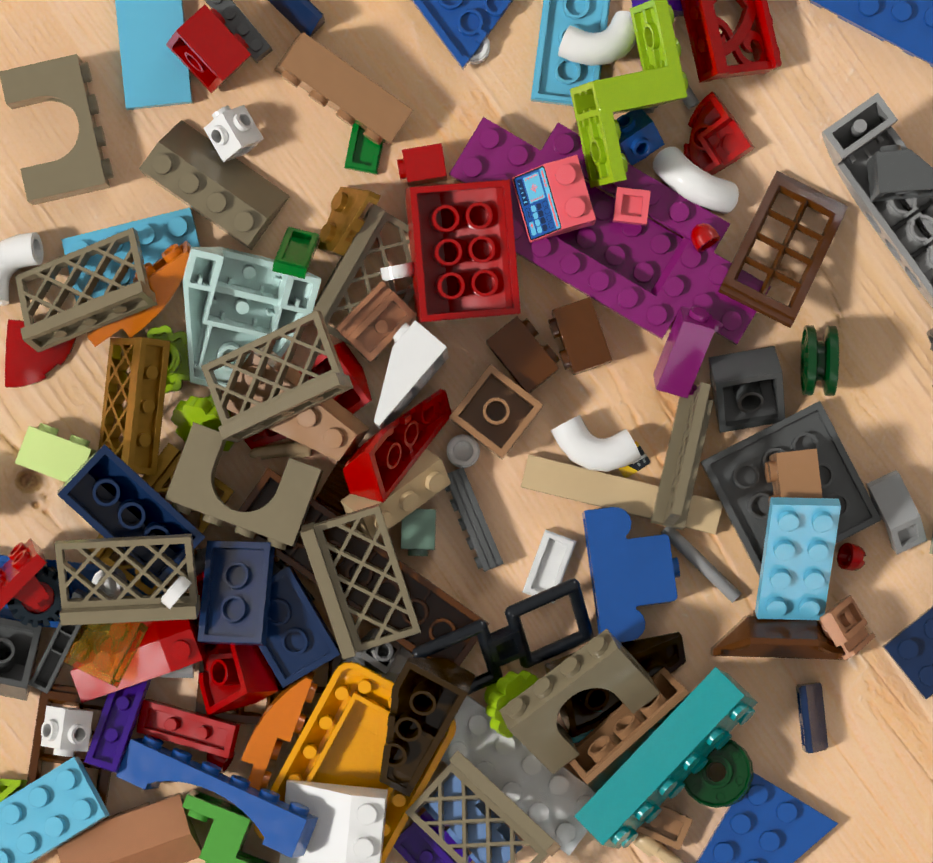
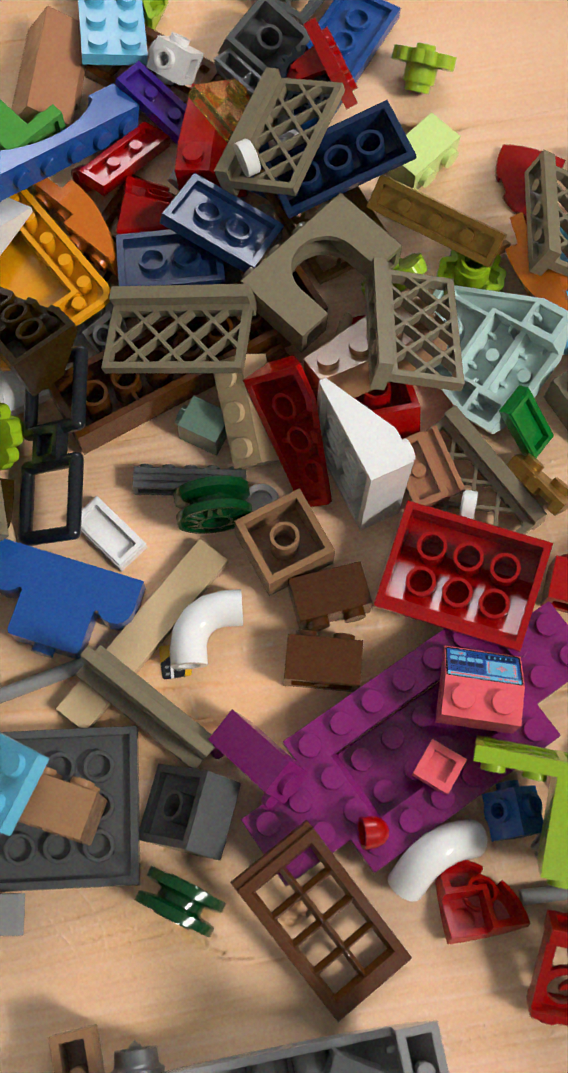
camera: 105 degrees right, 15 degrees down
(493, 484) = (211, 504): none -> dark green wheel

